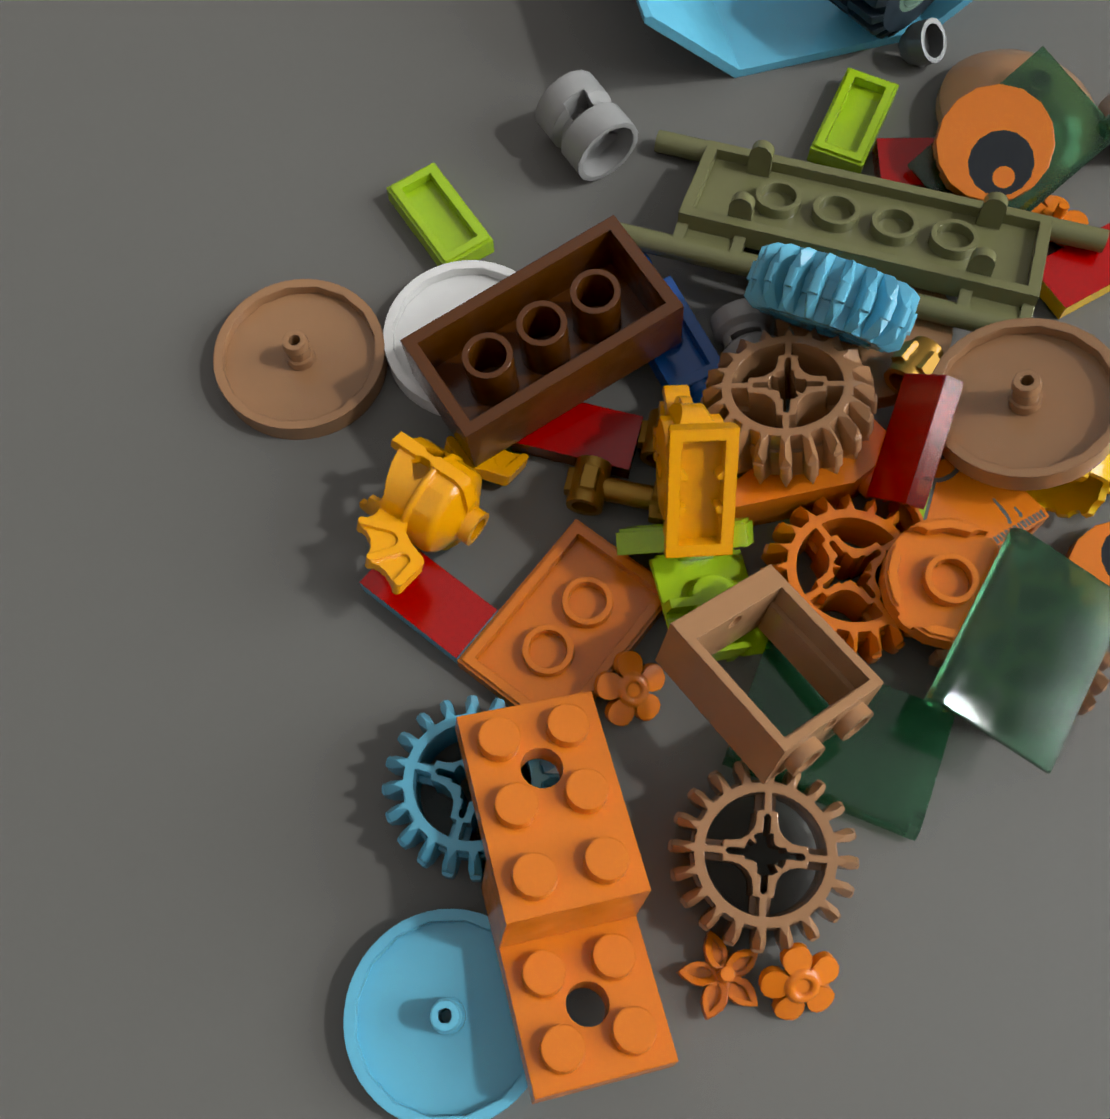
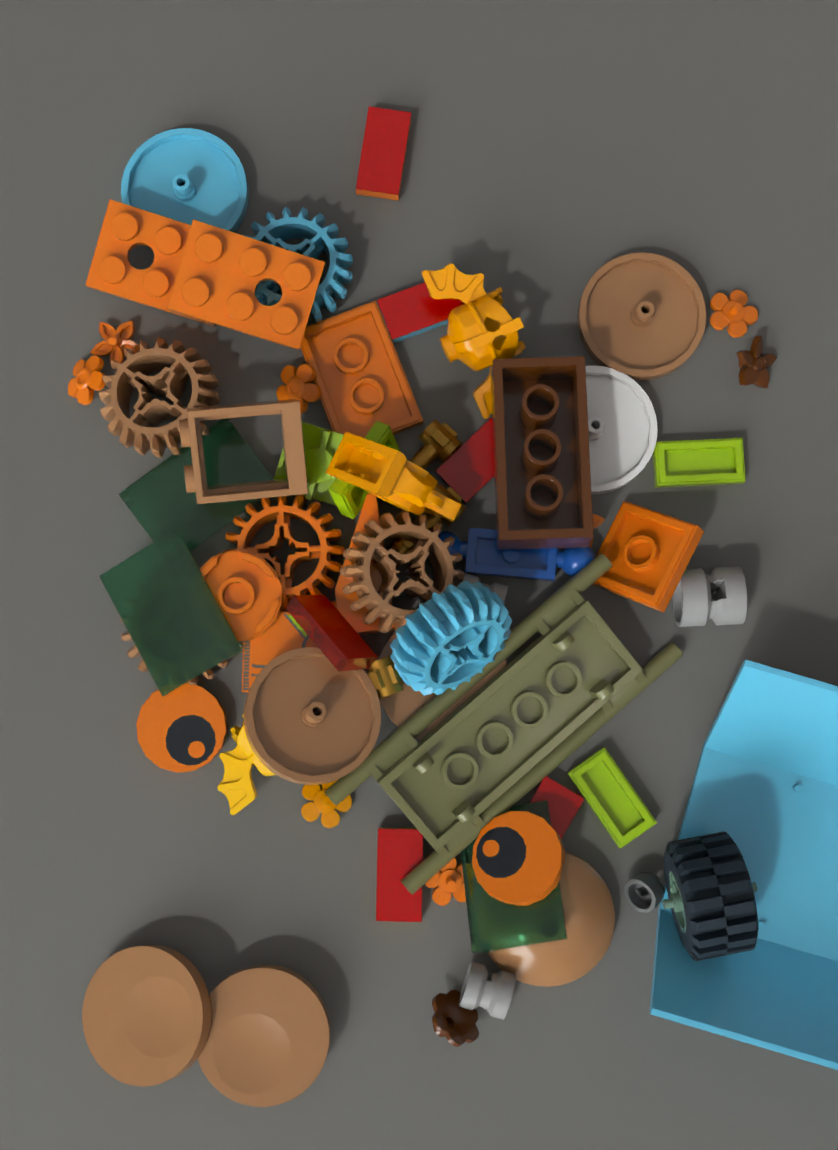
camera: 120 degrees right, 15 degrees up
(243, 271) = (732, 312): none -> orange plant
(246, 770) = (383, 153): none -> red tile
(294, 215) = (754, 364): none -> reddish brown plant
(580, 186) = (647, 555): none -> orange tile

